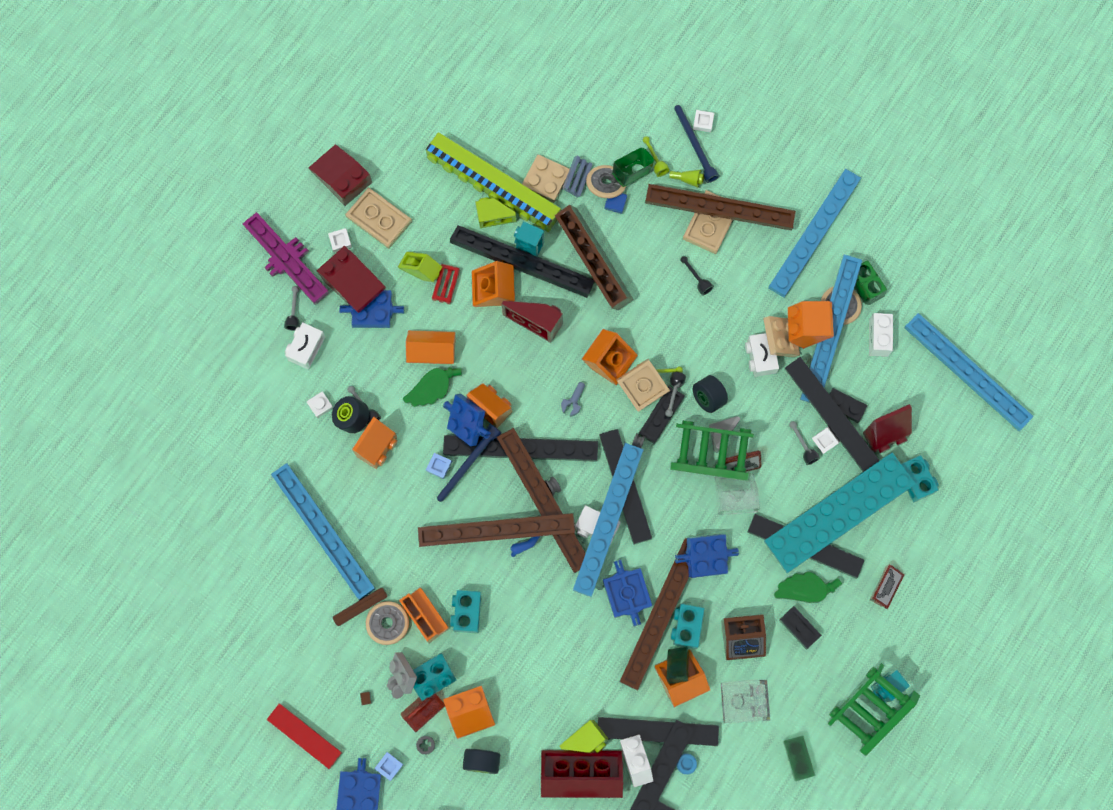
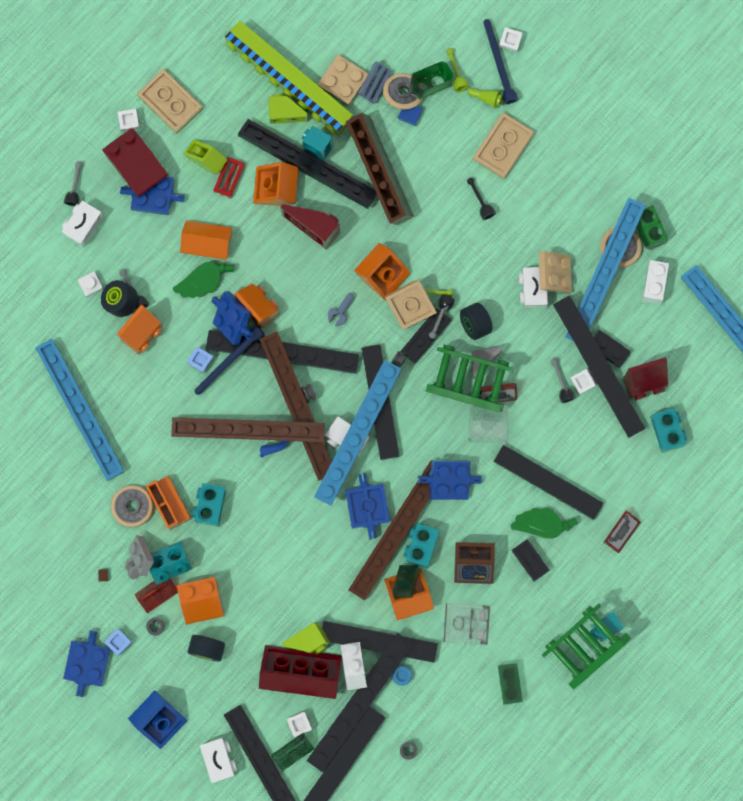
camera: 10 degrees right, 5 degrees up
(286, 258) = (72, 131): magenta hinge -> none
(304, 736) = (40, 603): red tile -> none
(341, 174) = (137, 51): dark red slope -> none
(360, 606) = (107, 487): reddish brown axle -> none
(720, 207) = (513, 132): reddish brown plate -> none
(810, 322) = (584, 262): orange slope -> none
(814, 233) = (606, 169): dark azure plate -> none
(839, 512) = (585, 454): teal plate -> none

